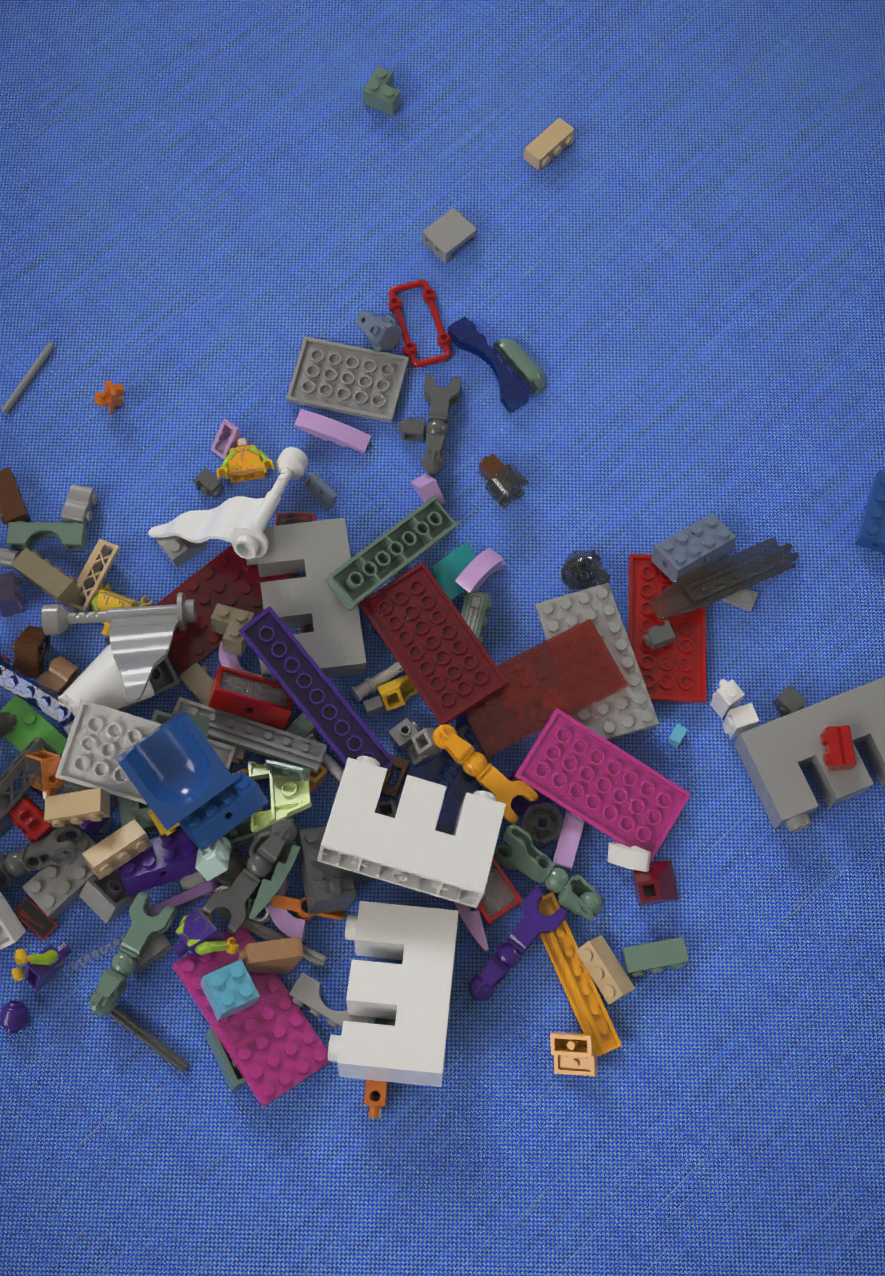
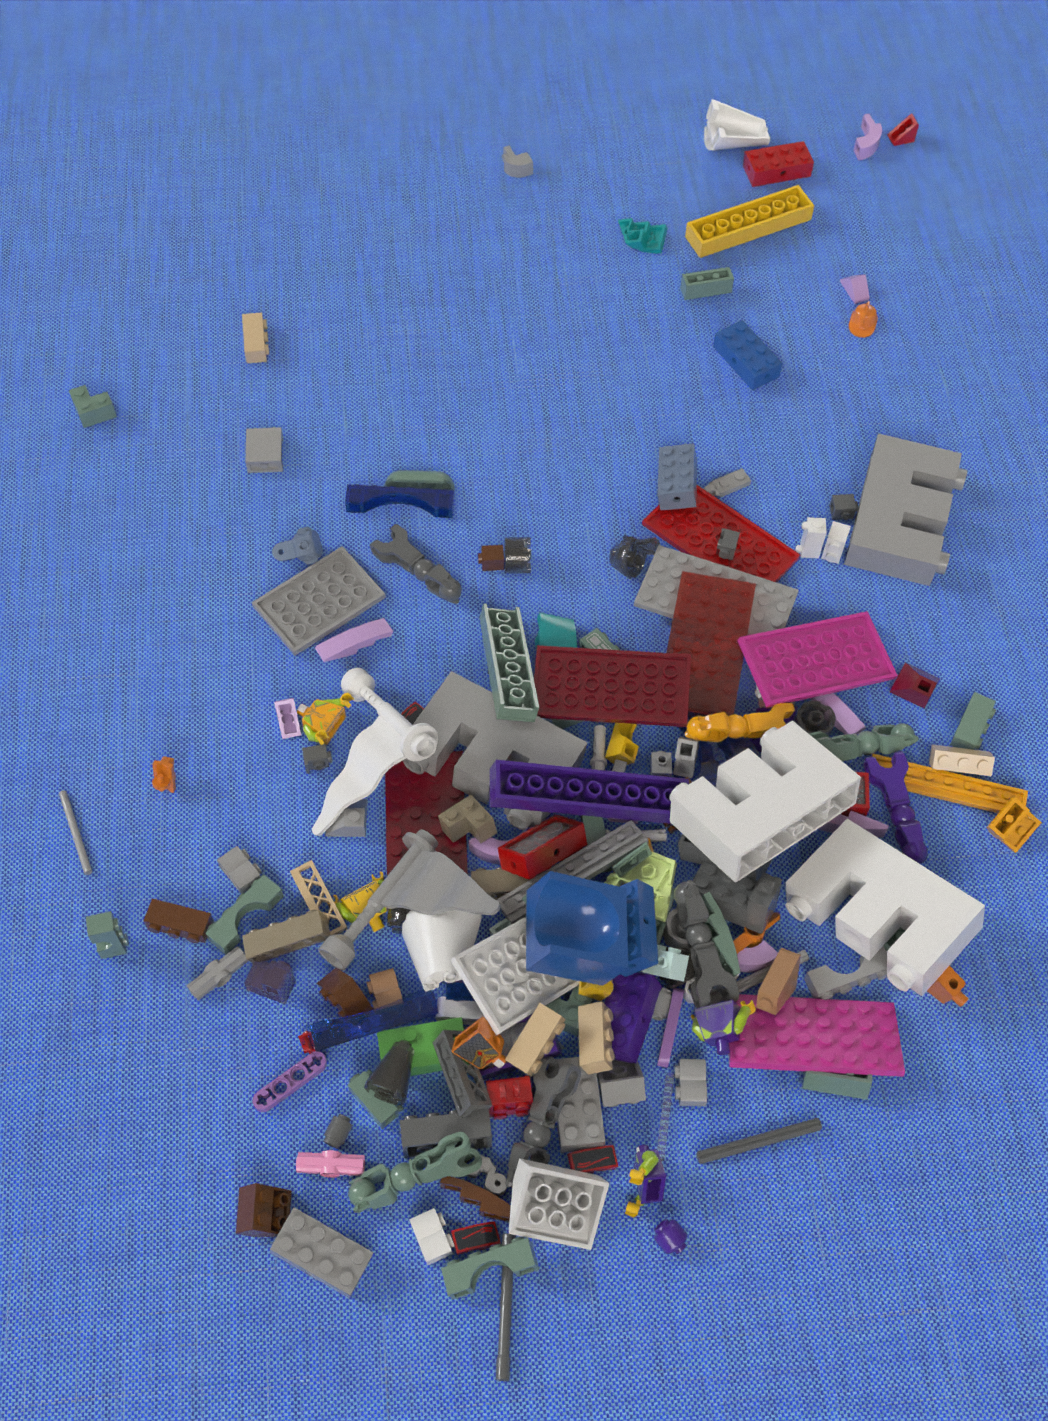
camera: 55 degrees left, 10 degrees down
(134, 945) = (697, 1102): sand green piece -> none
(229, 990) = (789, 1030): medium azure brick -> none
(320, 490) = (398, 683): sand blue plate -> none
(410, 348) = (301, 500): red bar -> none
(412, 429) = (407, 586): dark grey brick -> none
(427, 488) = (465, 611): lavender slope -> none
(480, 569) = (575, 617): lavender arch -> none
(631, 858) = (885, 684): white slope -> none
(677, 735) = (811, 591): medium azure piece -> none
(724, 578) = (718, 477): clear smoke hinge -> none
(838, 748) = (913, 492): red brick -> none

